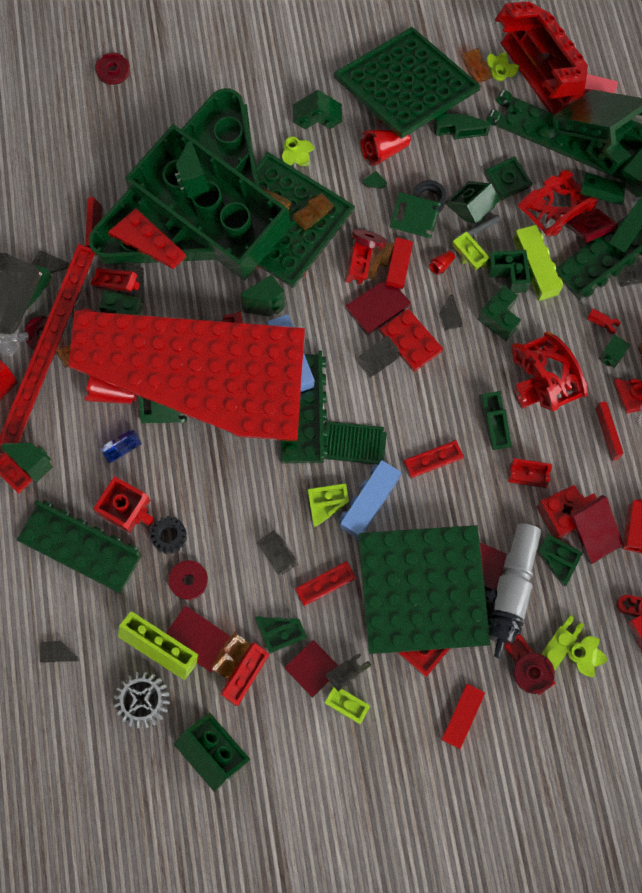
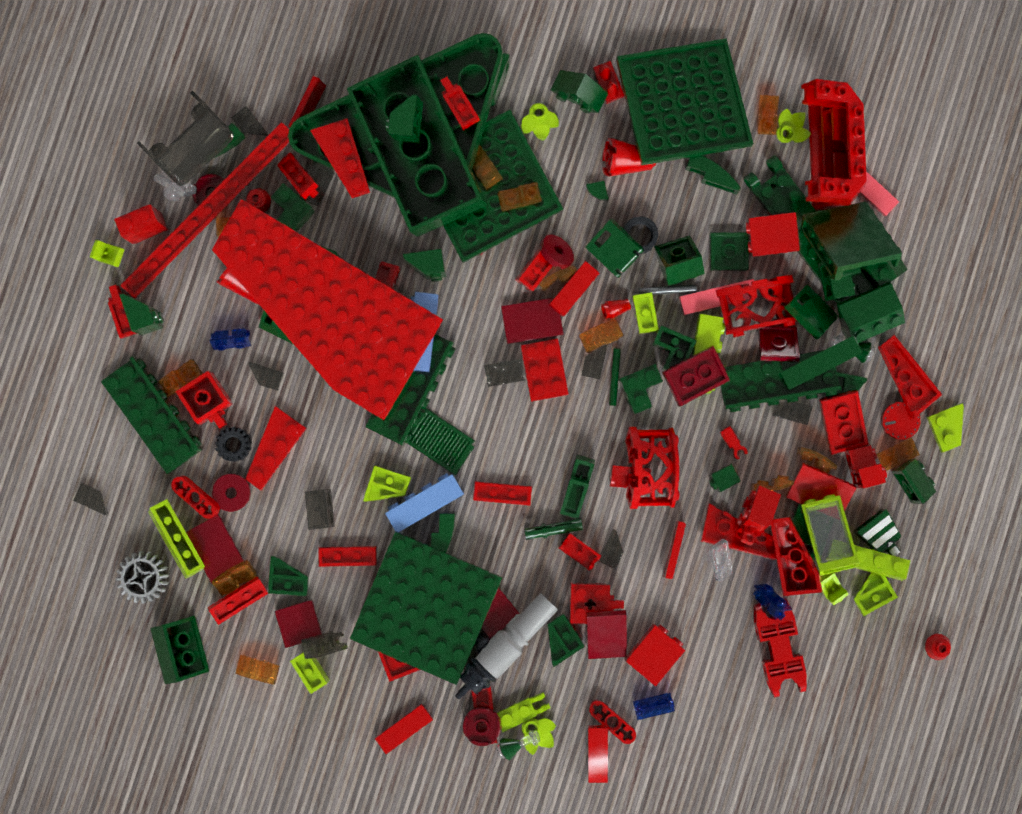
camera: 30 degrees right, 15 degrees up
(86, 503) = (180, 377): none -> clear orange slope
(169, 462) = (267, 377): none -> clear smoke tile
(171, 597) = (187, 497): none -> red beam
(208, 517) = (277, 442): none -> red wing
(227, 150) = (459, 104): none -> red hinge
(296, 732) = (257, 669): none -> clear orange slope
(341, 97) = (608, 81): none -> red tile
(401, 512) = (442, 539): none -> dark green slope
(446, 284) = (601, 334): none -> clear orange slope
(473, 317) = (614, 377): none -> dark green bar
(489, 471) = (553, 529): none -> dark green pin
(510, 223) = (706, 299): none -> coral tile
(537, 144) = (773, 234): none -> red brick
(542, 277) = (695, 376): none -> dark red tile
(557, 459) = (612, 551): none -> clear smoke tile
(570, 679) = (509, 747): none -> piece

